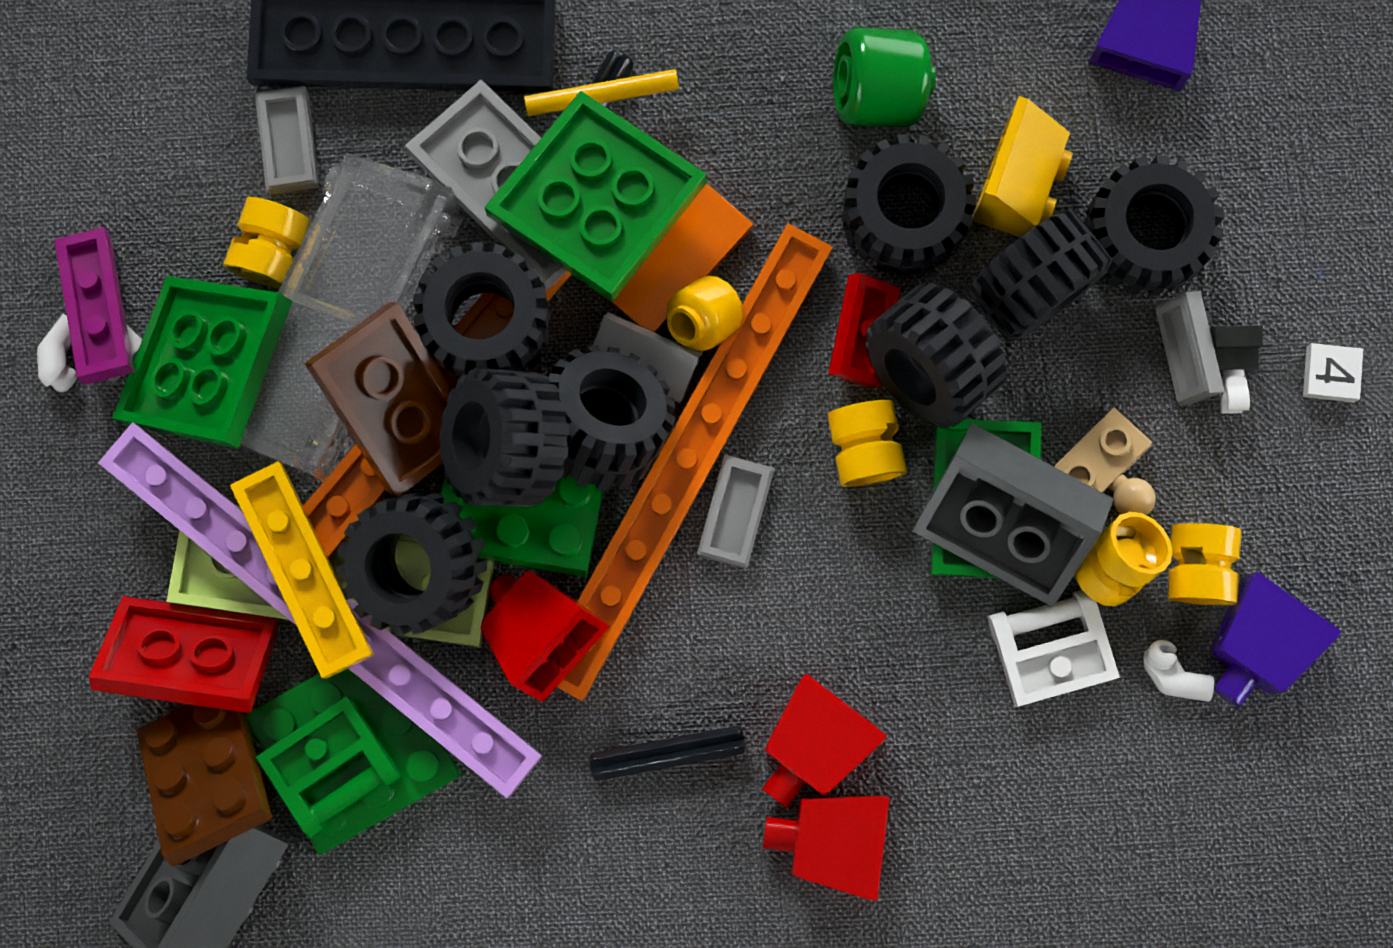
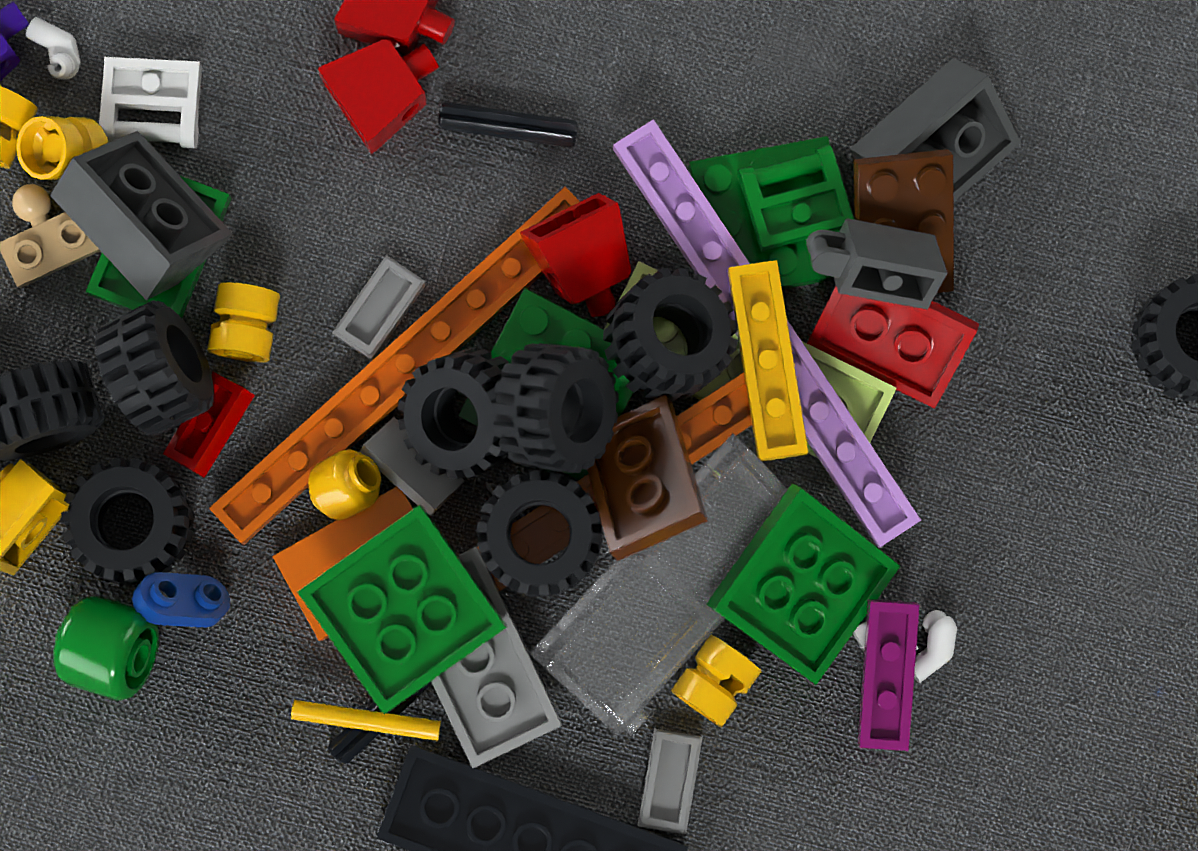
camera: 170 degrees left, 0 degrees up
(208, 710) = (879, 262): none -> dark grey brick
(821, 148) = (190, 600): none -> blue plate

